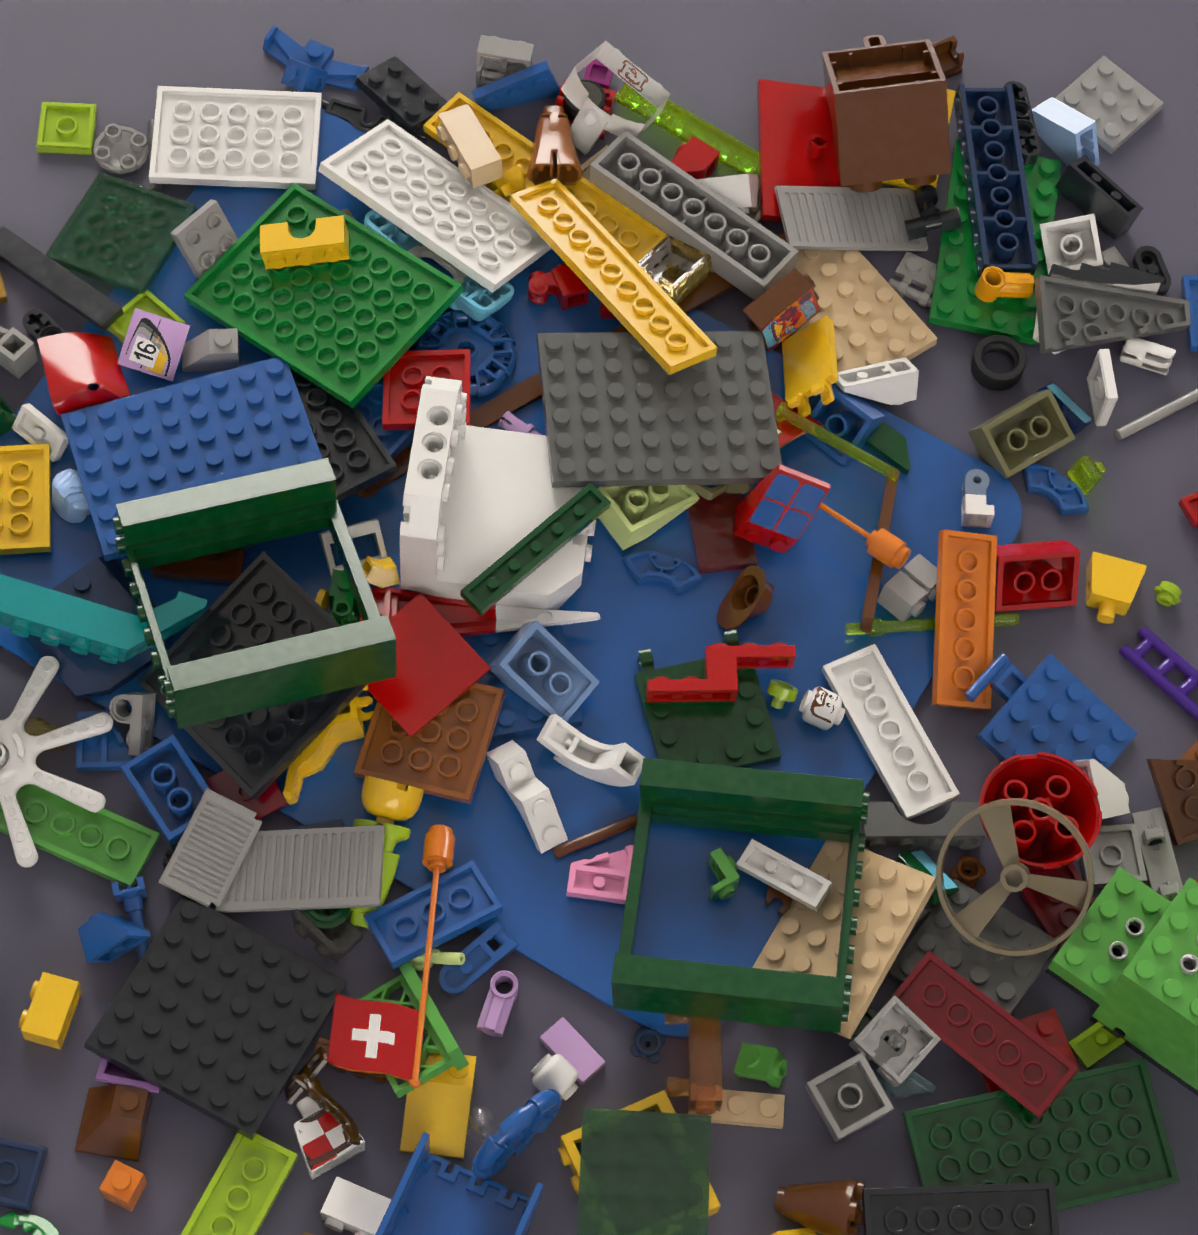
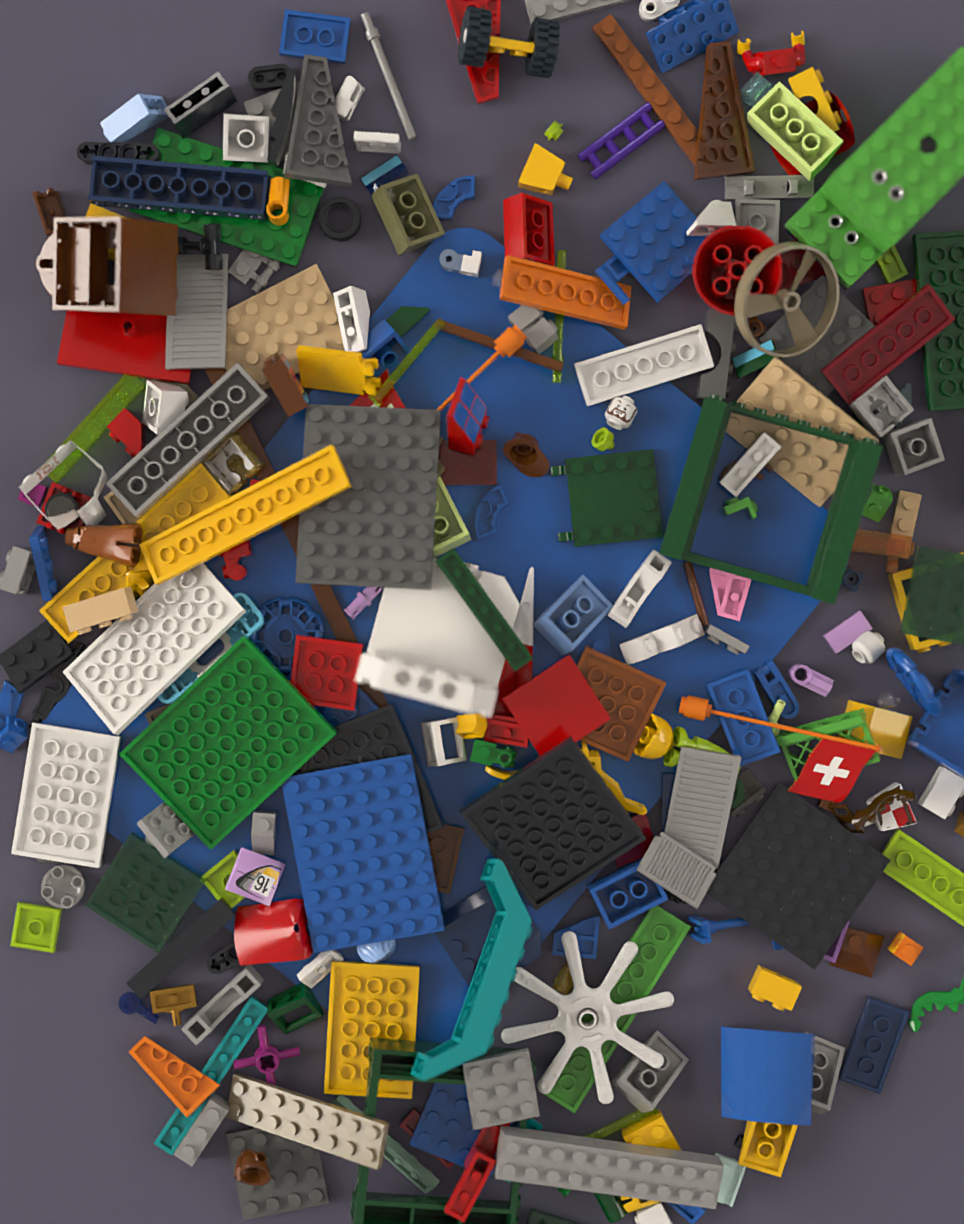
camera: 75 degrees left, 25 degrees up
(109, 937) = (729, 944): blue slope -> none
(141, 719) = (562, 913): light grey plate -> none
(234, 516) = (435, 841): dark green door -> none
(325, 244) = (188, 735): yellow arch -> none
(533, 889) = (734, 645): none -> light grey plate
(720, 673) = (589, 484): red bracket -> none
(1086, 473) = (447, 170): clear neon green tile -> none
(1111, 100) = (104, 76): light grey plate -> none

